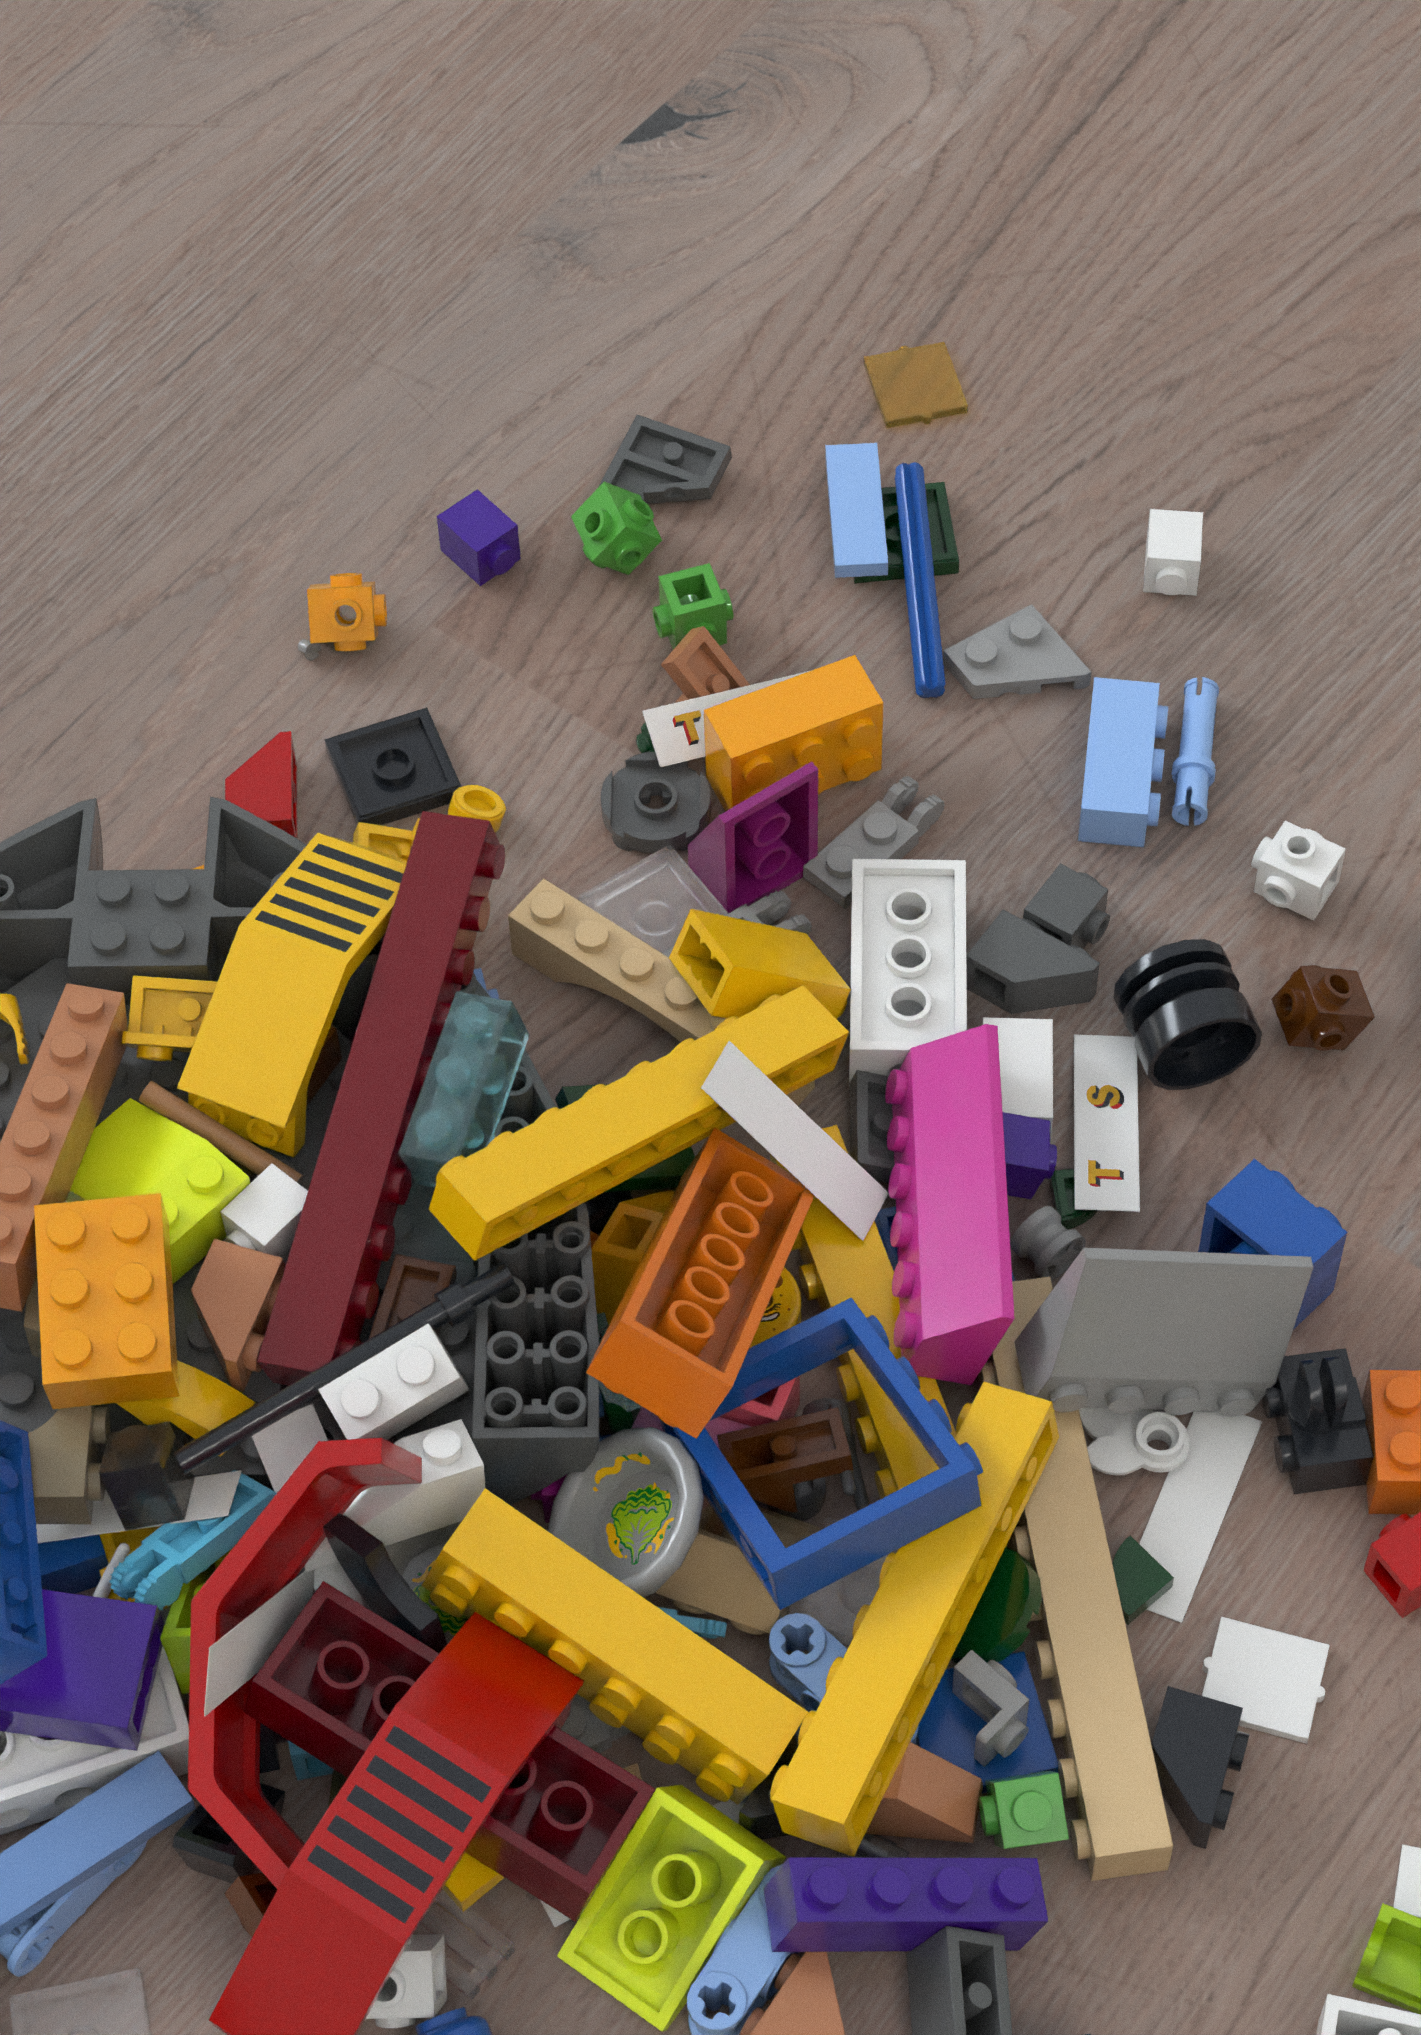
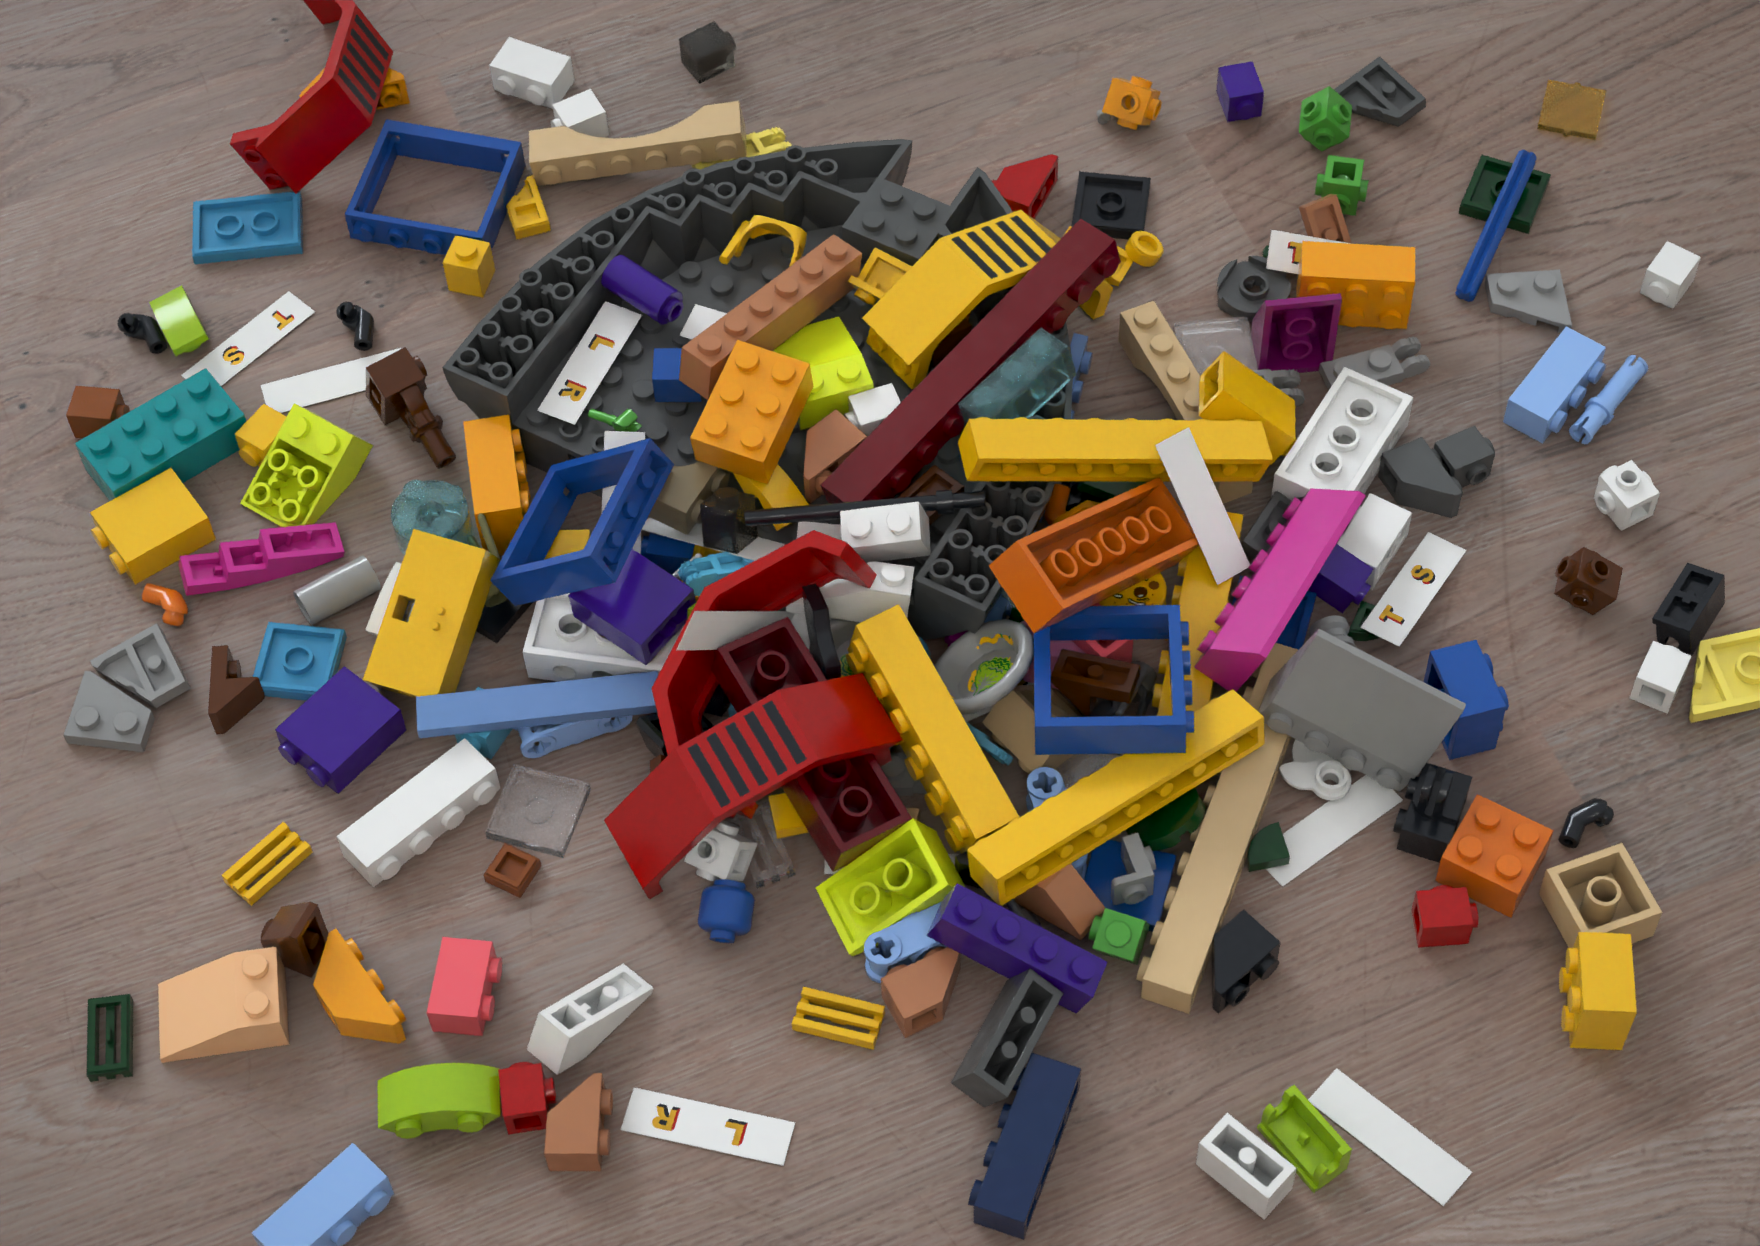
camera: 30 degrees right, 0 degrees up
(217, 1134) = (871, 352): medium nougat bar -> none
(856, 510) = (1481, 168): light blue tile -> none
(1187, 1014) = (1497, 546): black wheel -> none
(1267, 1675) = (1313, 940): white piece -> none

